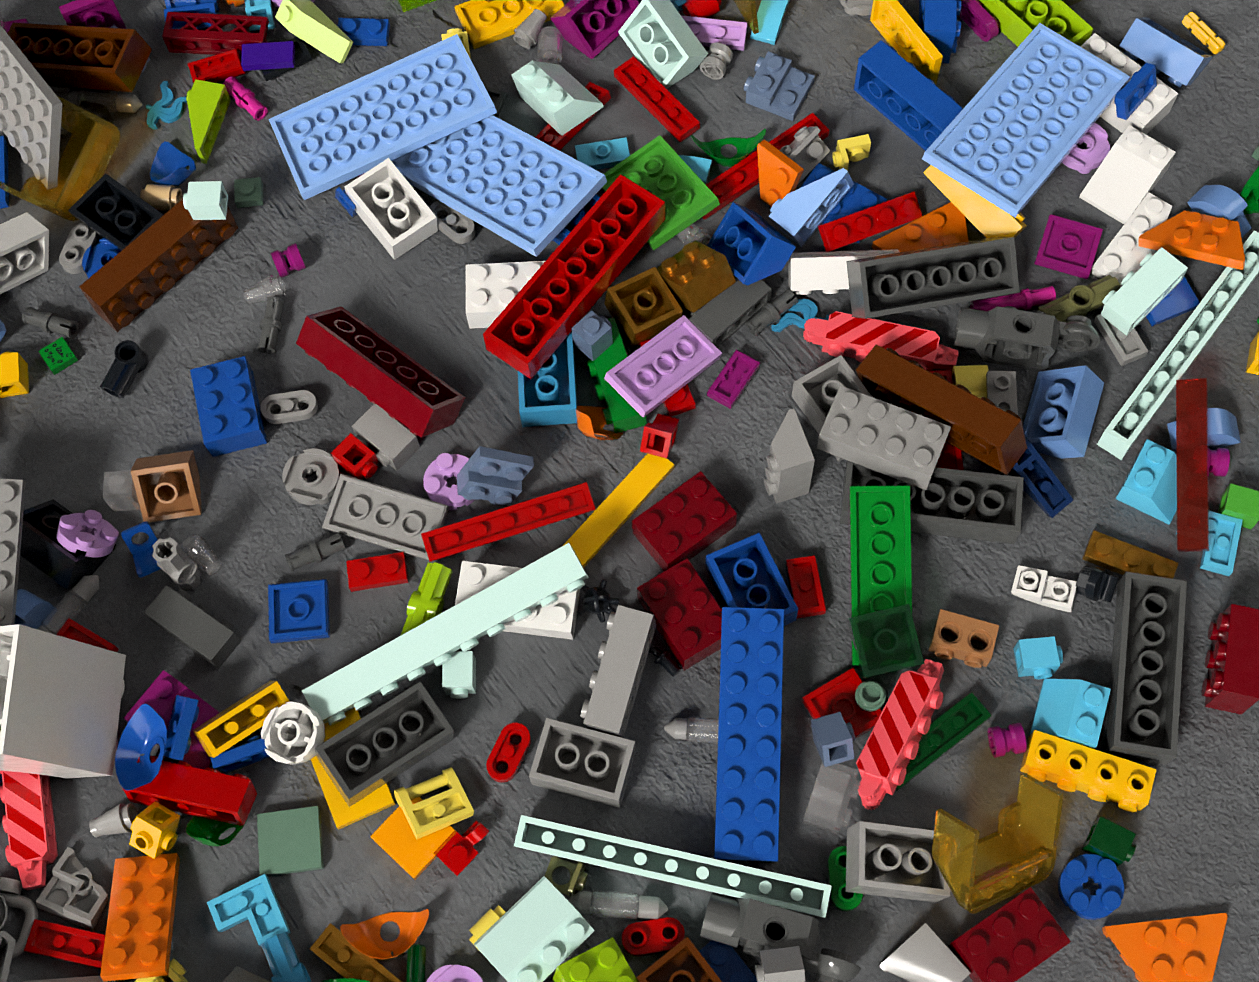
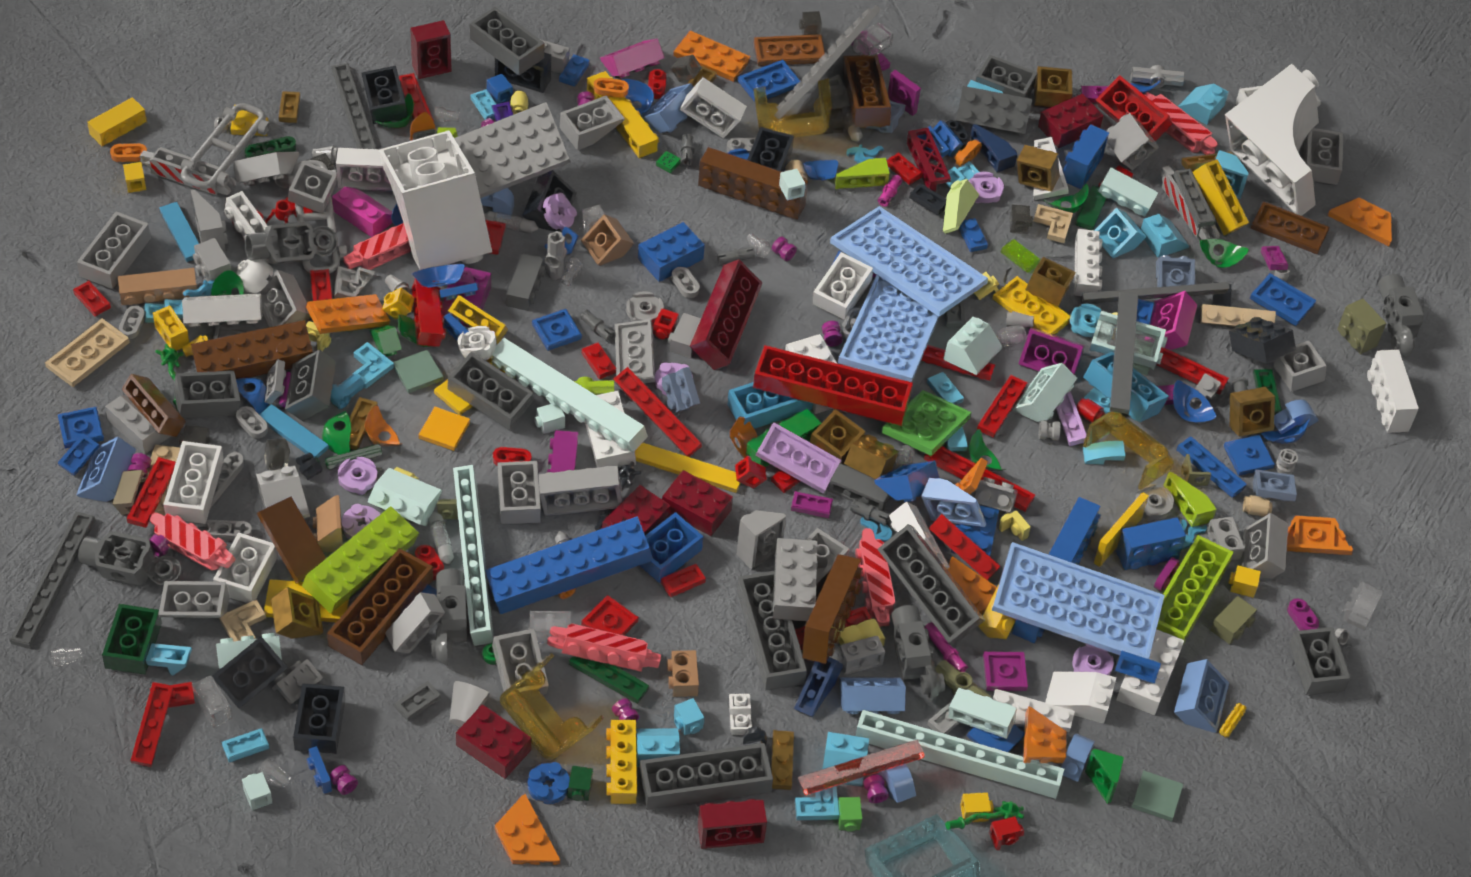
camera: 60 degrees right, 15 degrees down
(122, 370) = (679, 194): black piece -> none
(212, 871) = (386, 339): none -> green slope
(248, 192) = (824, 215): sand green plate -> none
(268, 56) = (923, 189): dark purple tile -> none
(437, 810) = (462, 431): light yellow plate -> none
(458, 850) = (444, 450): red plate -> none
(459, 252) = (832, 333): none -> magenta wheel
(541, 680) = (564, 451): none -> magenta brick
(592, 335) = (798, 410): sand blue brick -> none
(778, 86) = (1049, 471): sand blue plate -> none
(833, 739) = (583, 609): sand blue brick -> none
(870, 696) = (622, 626): sand green plate -> none
(879, 549) = (703, 610): green plate -> none
(885, 641) = (658, 619): clear green brick -> none

